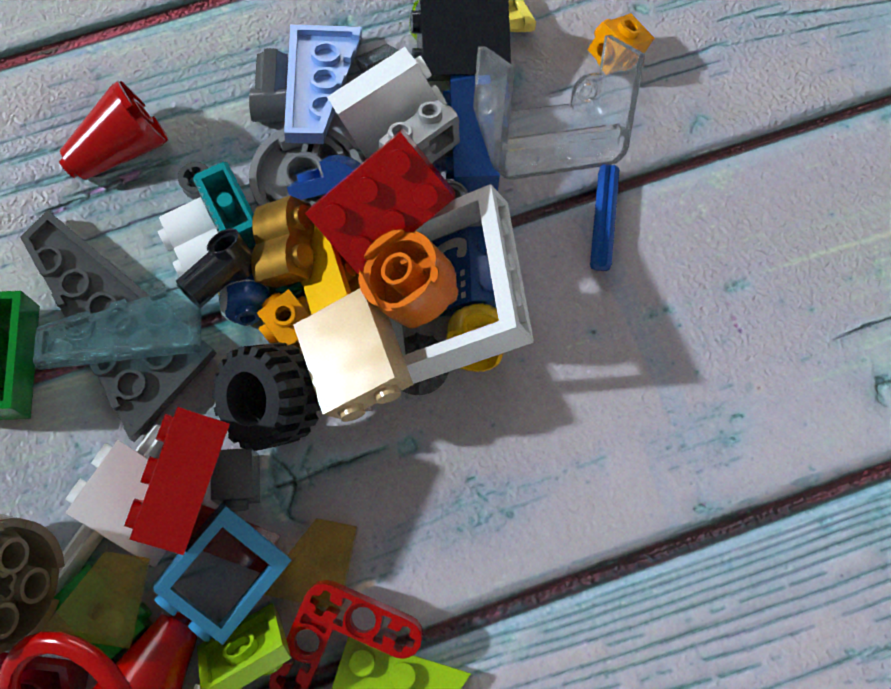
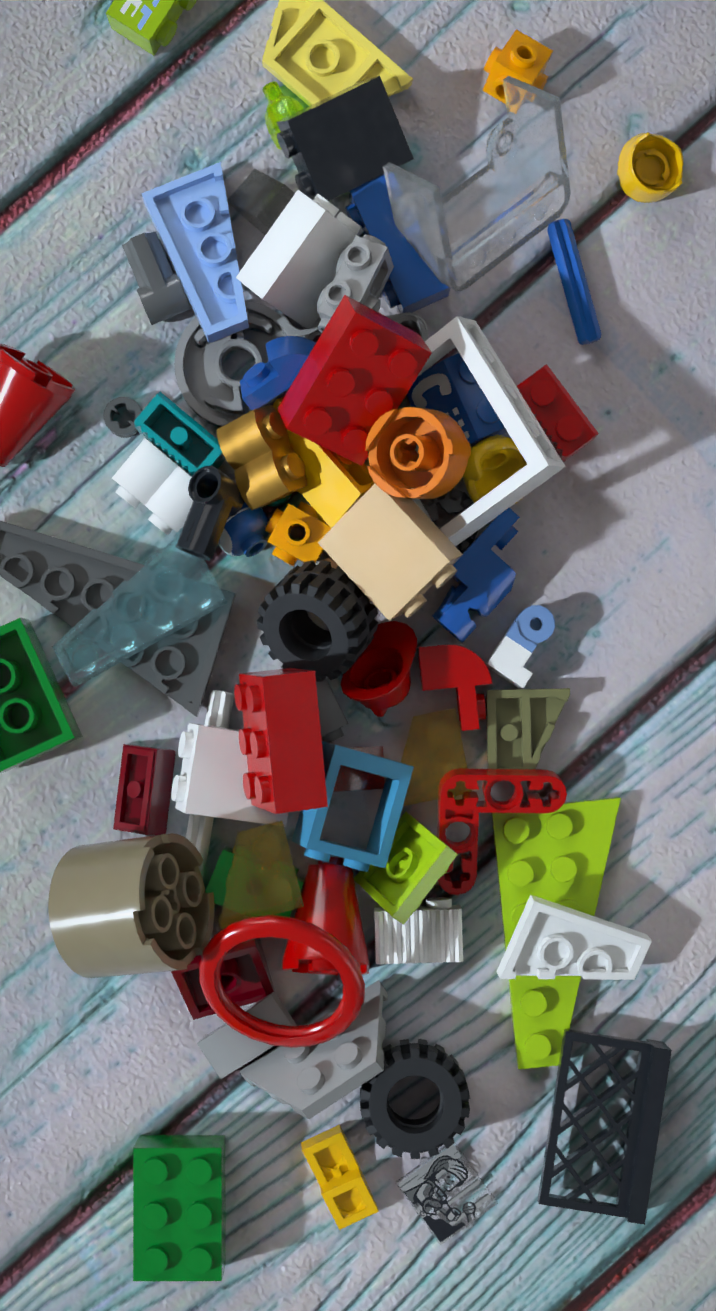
camera: 20 degrees left, 15 degrees up
(46, 496) = (144, 790): none -> dark red slope
(304, 466) = (382, 671): none -> red piece
(373, 492) = (460, 669): none -> red brick
(408, 566) = (520, 725): none -> olive wing
(427, 420) = (481, 579): none -> blue plate
(448, 484) = (518, 643): none -> leg
(547, 311) = (557, 413): none -> red brick
(700, 154) = (650, 167): none -> yellow hair

